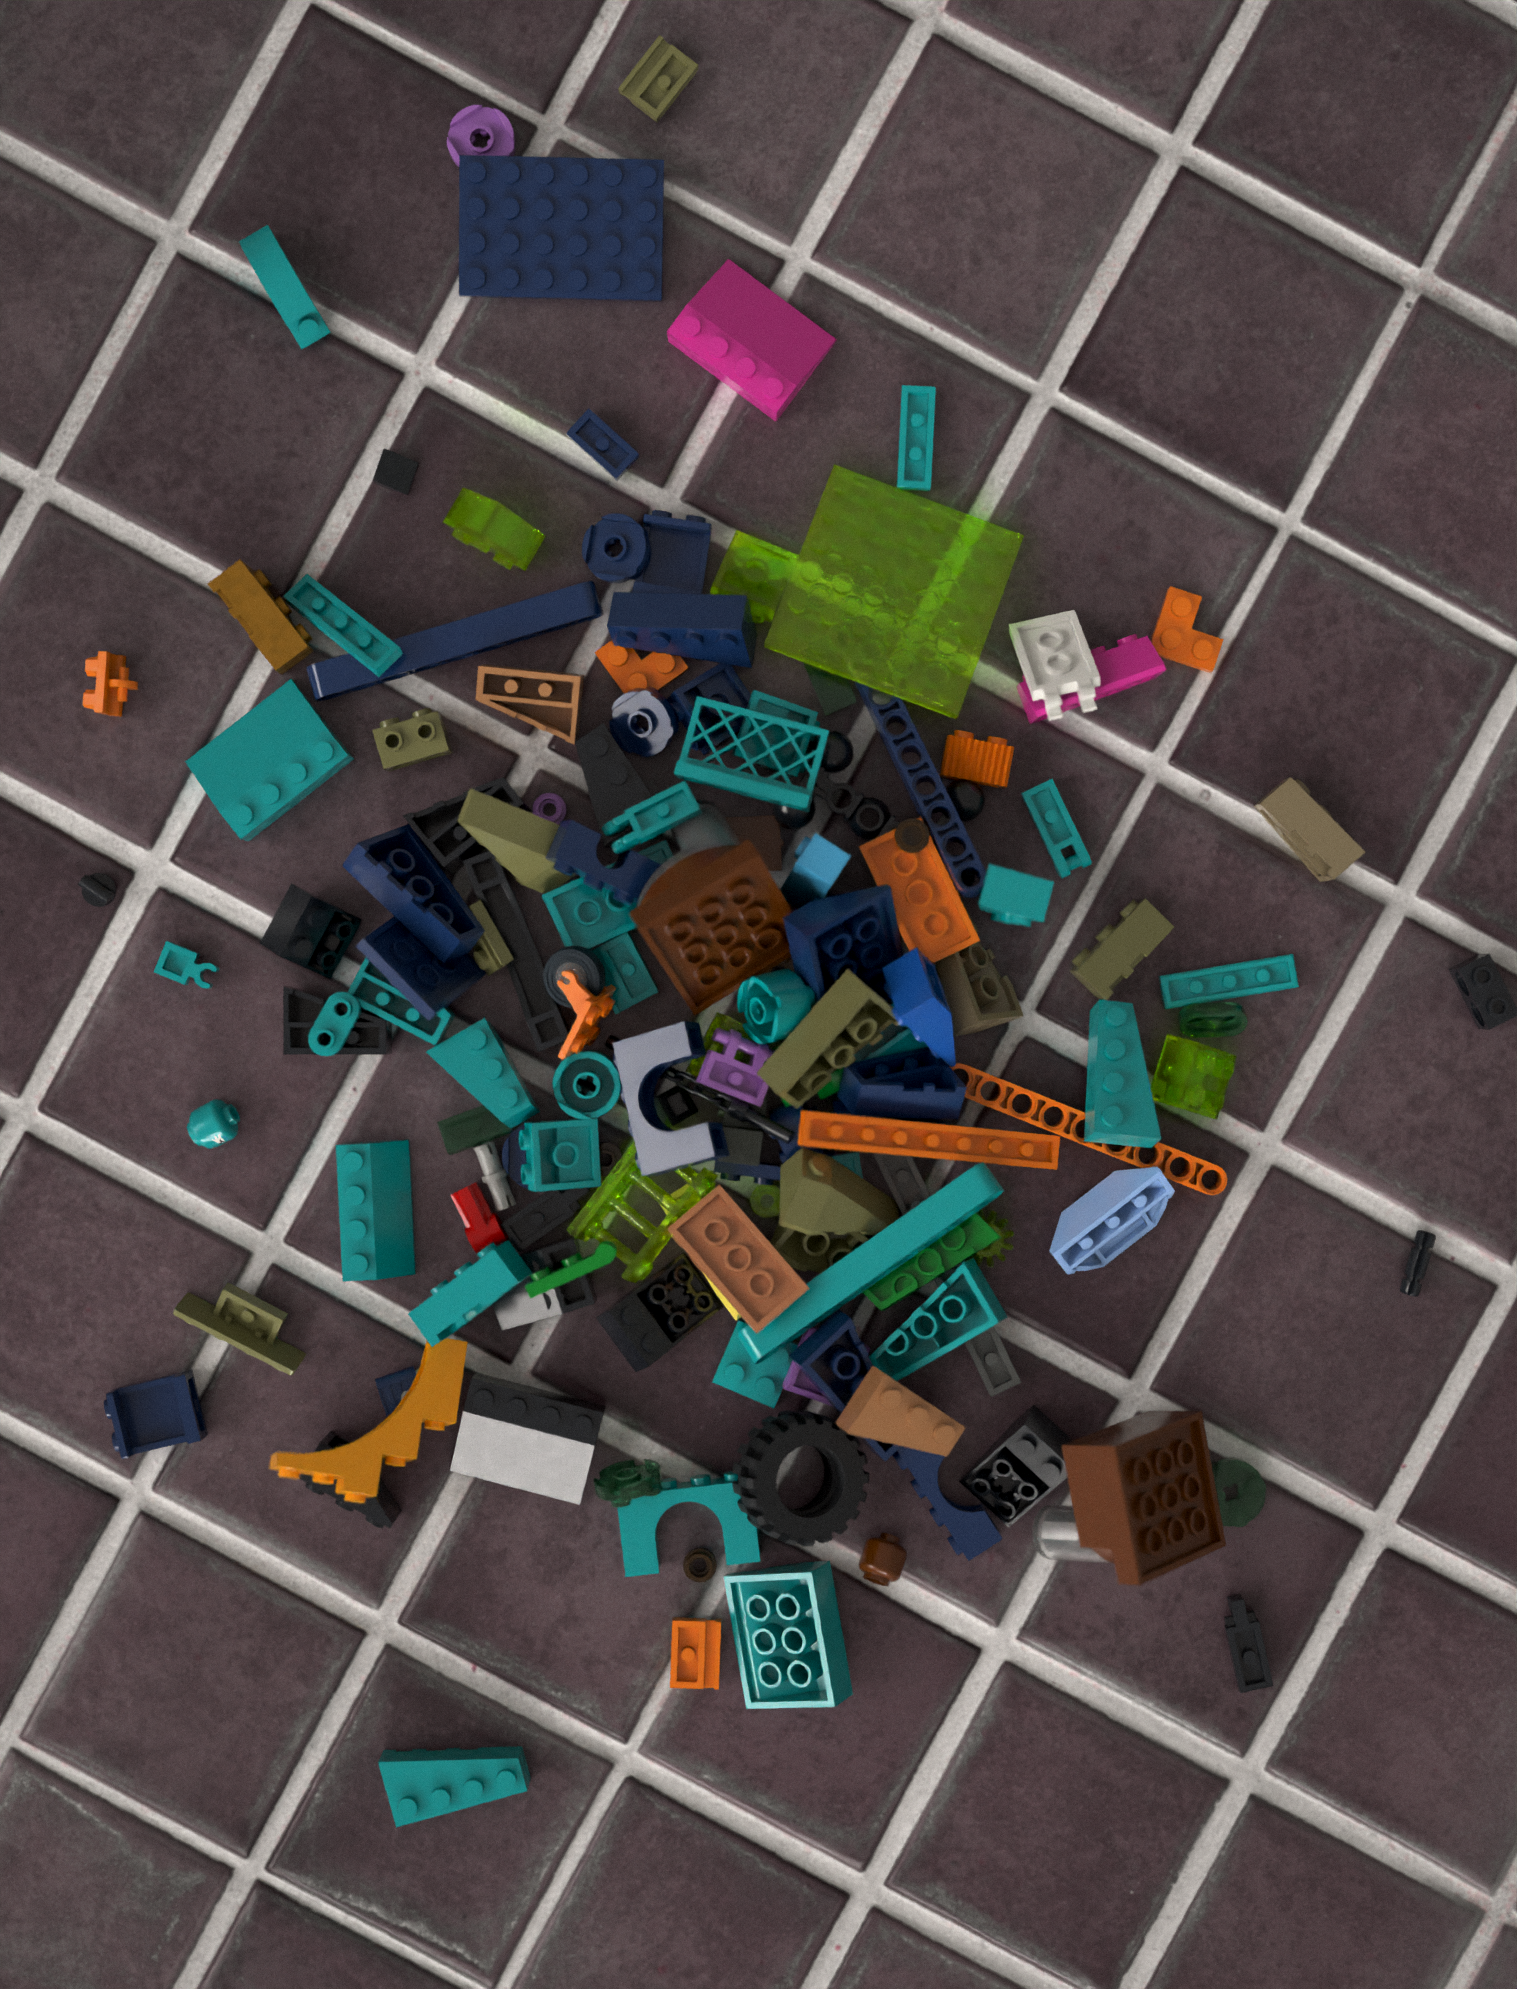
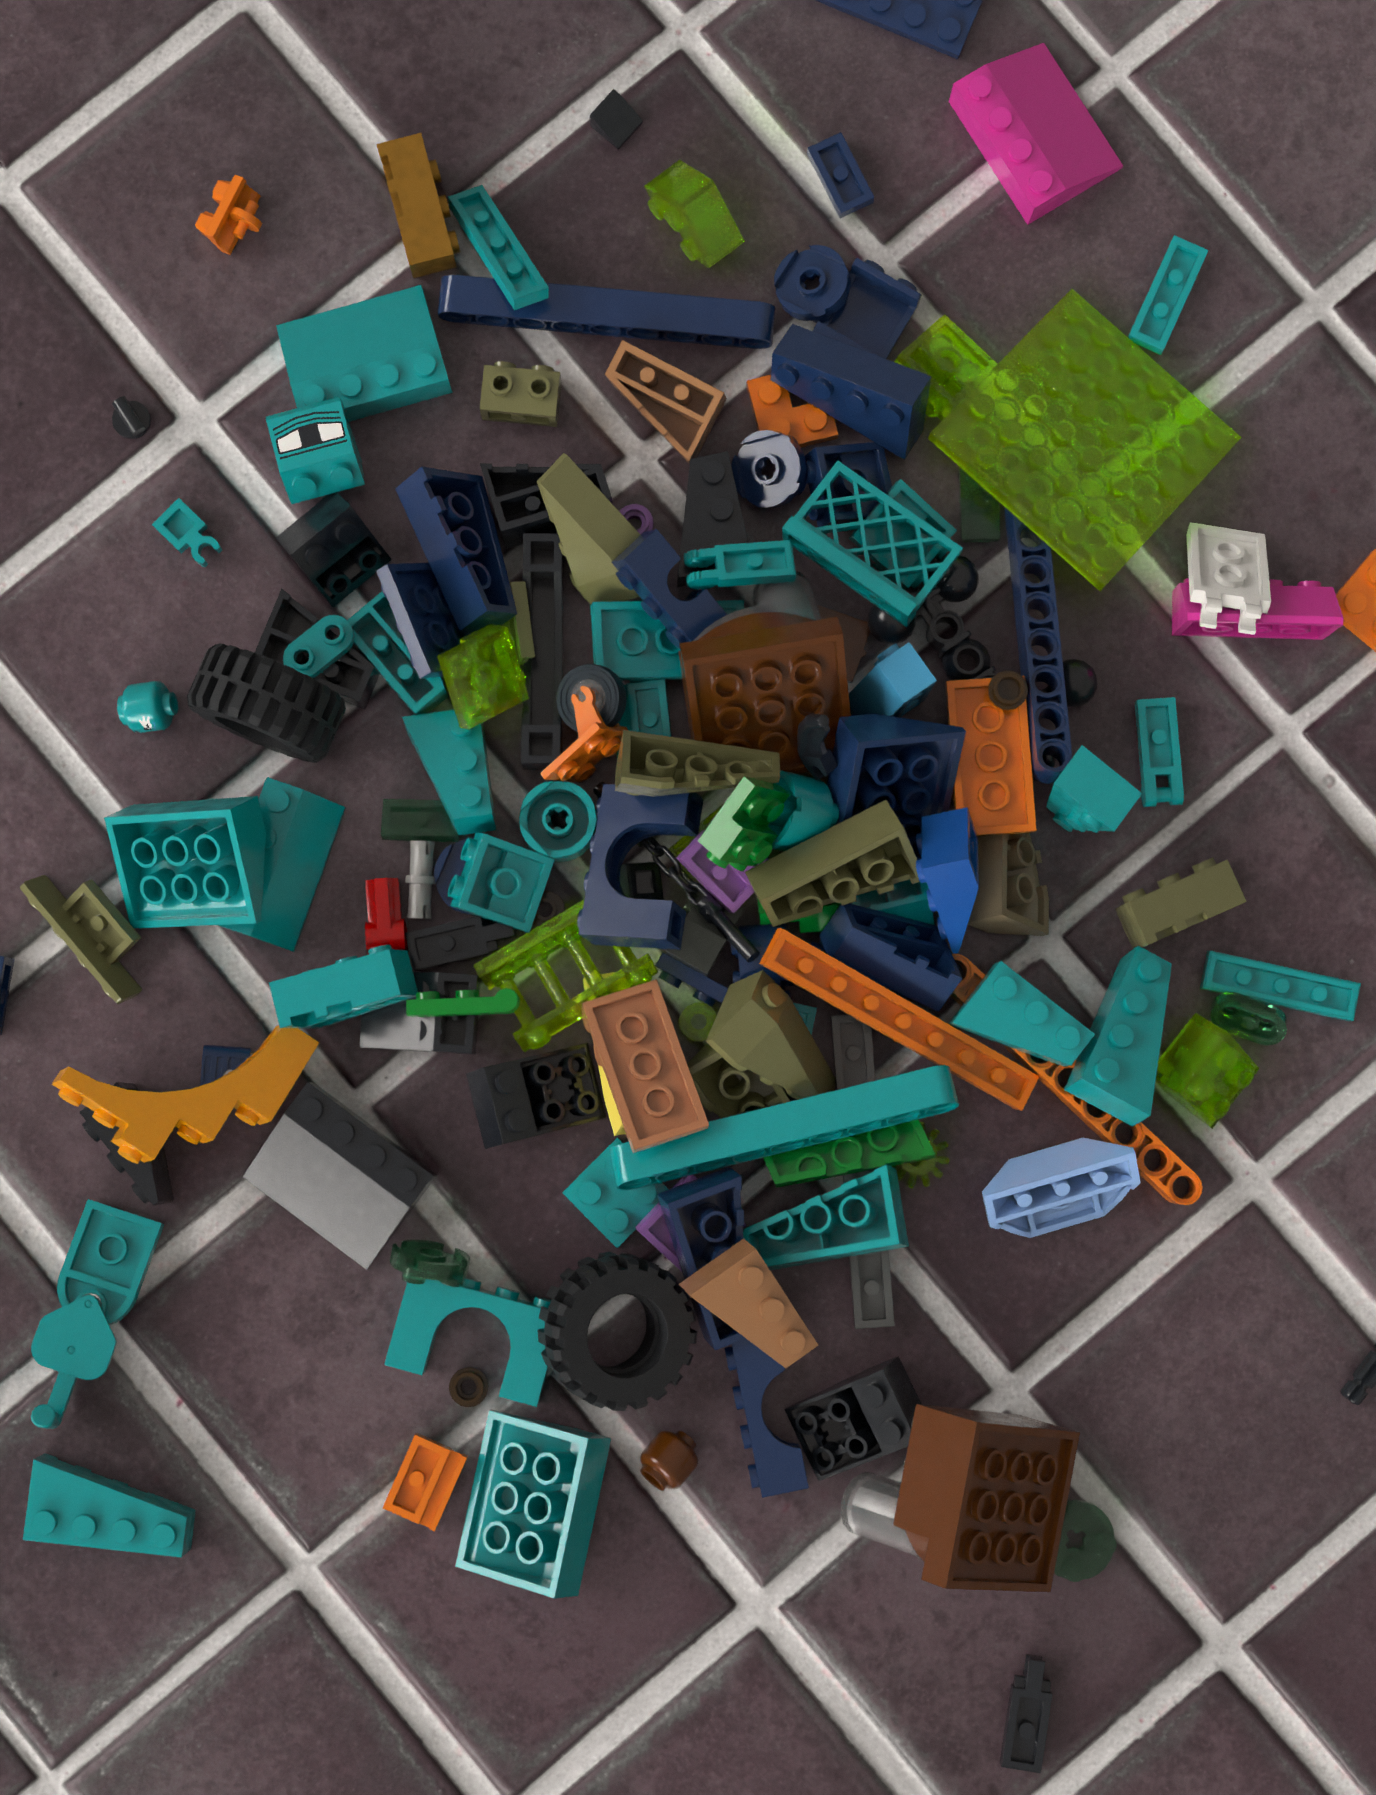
camera: 20 degrees right, 5 degrees down
(263, 859) = (315, 450): none -> teal slope
(302, 1239) = (190, 861): none -> teal slope
(311, 1088) = (266, 702): none -> black tyre
(371, 1581) = (104, 1259): none -> teal plate
(478, 994) = (483, 675): none -> clear neon green plate
(668, 1008) = (674, 765): none -> olive wedge
(740, 1040) = (740, 828): none -> green plate
(766, 943) = (811, 745): none -> black piece
(976, 760) = (1104, 646): orange brick -> none
(1026, 1099) = (1021, 1017): none -> teal wedge

